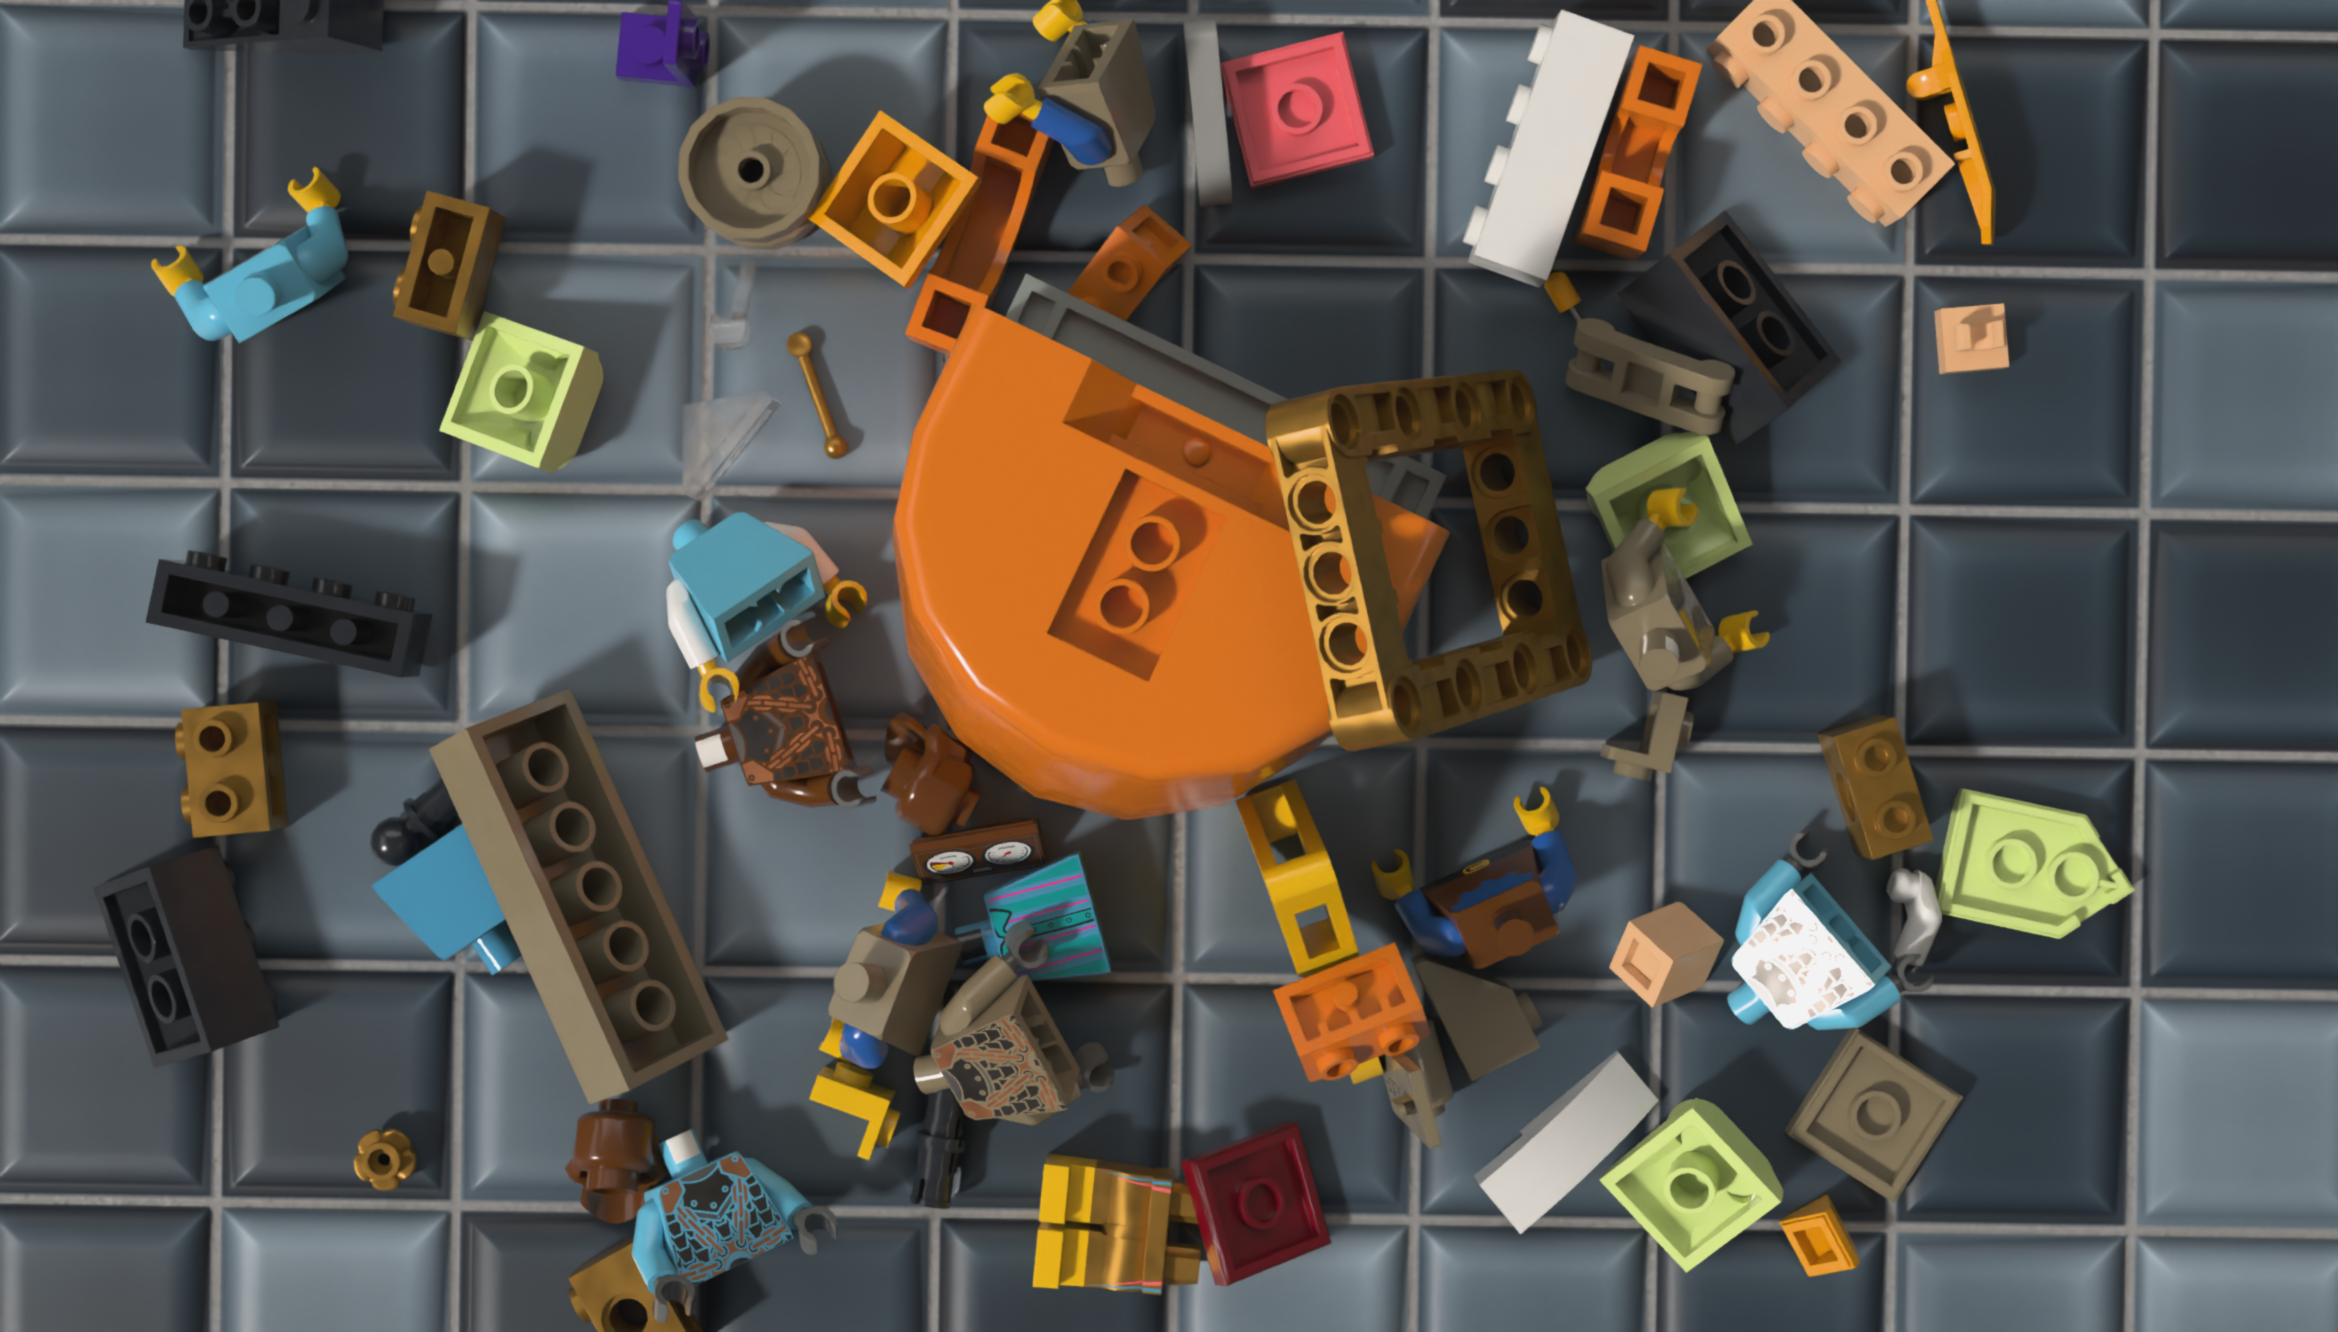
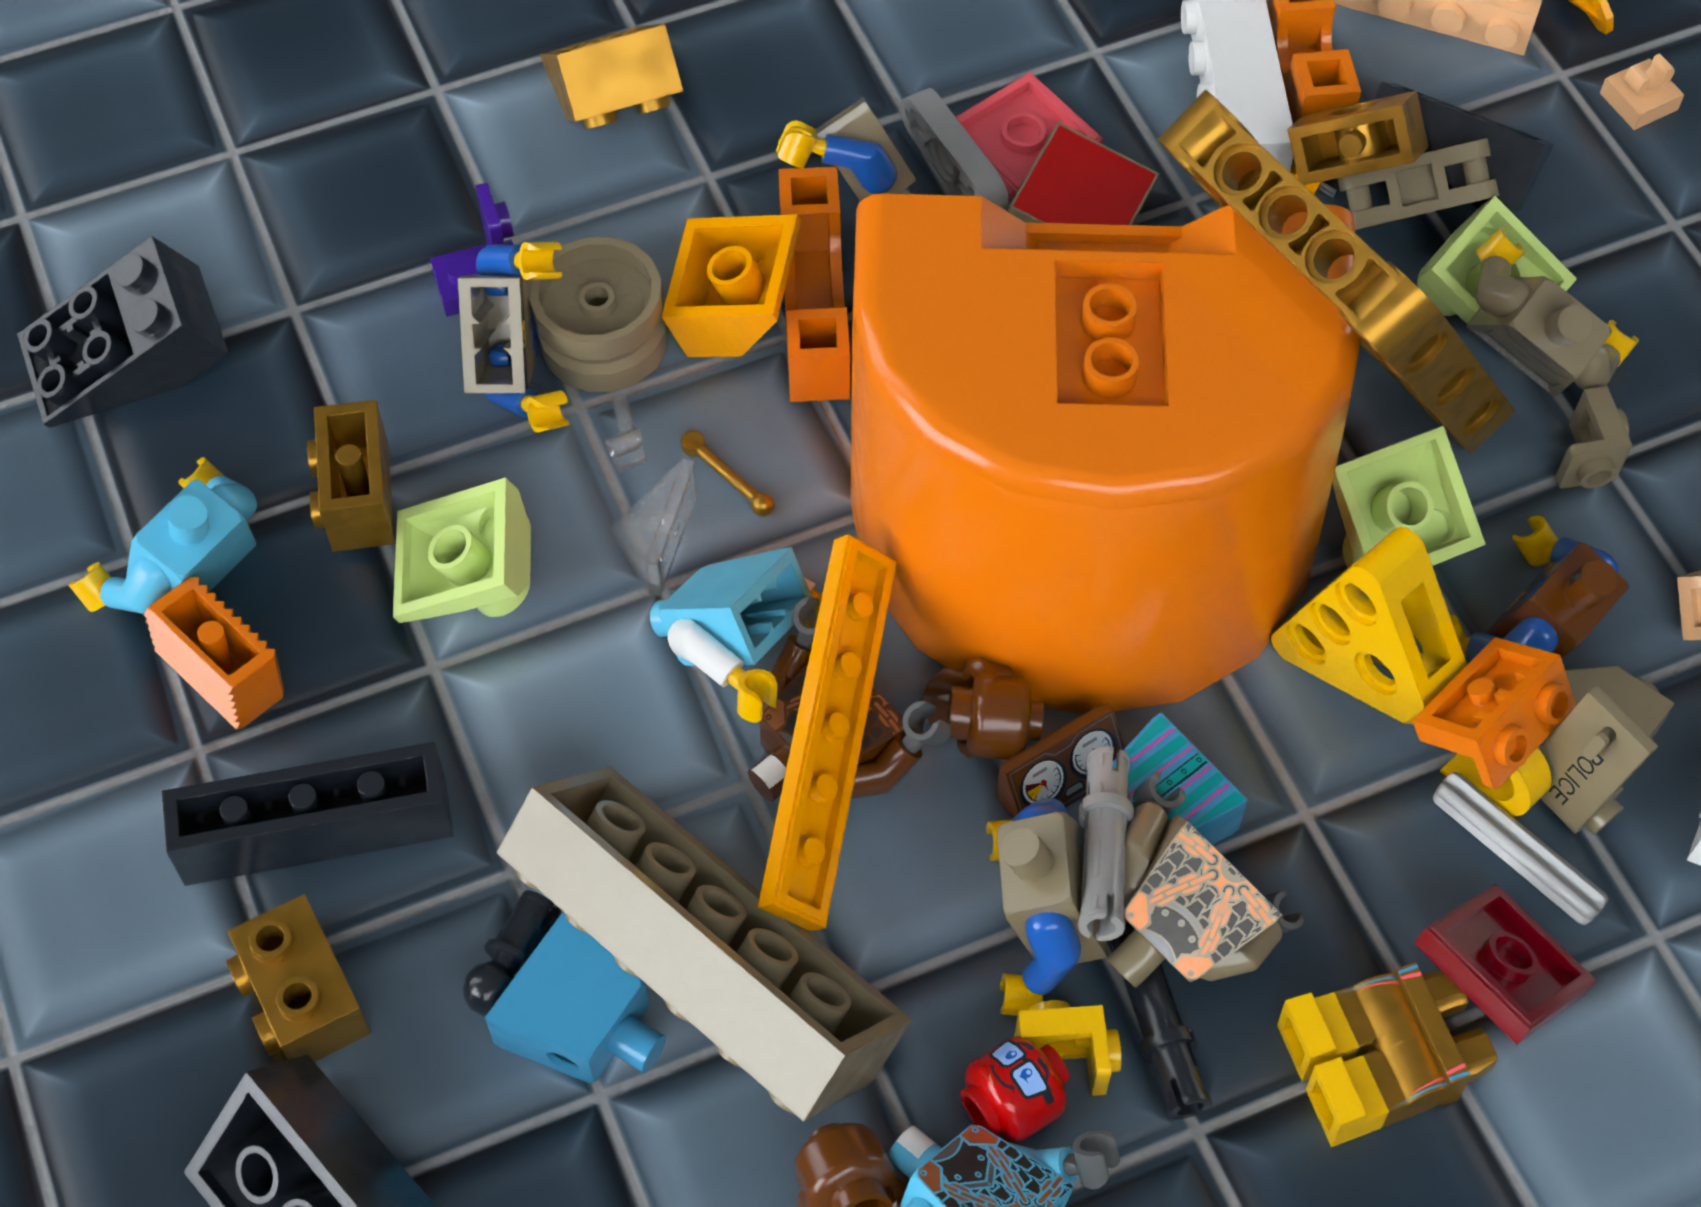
camera: 25 degrees left, 30 degrees down
(257, 412) = (215, 652): none -> orange brick
(638, 173) = (501, 333): none -> torso
(766, 756) = (828, 735): none -> light orange tile
(789, 1130) = (1015, 1089): none -> red head
(953, 970) = (1105, 820): none -> light grey pin
(1313, 223) = (1082, 183): none -> red tile
(1351, 1132) = (1520, 848): none -> light grey axle
(1418, 772) = (1408, 487): none -> yellowish green slope
(1606, 312) = (1358, 138): none -> pearl gold brick

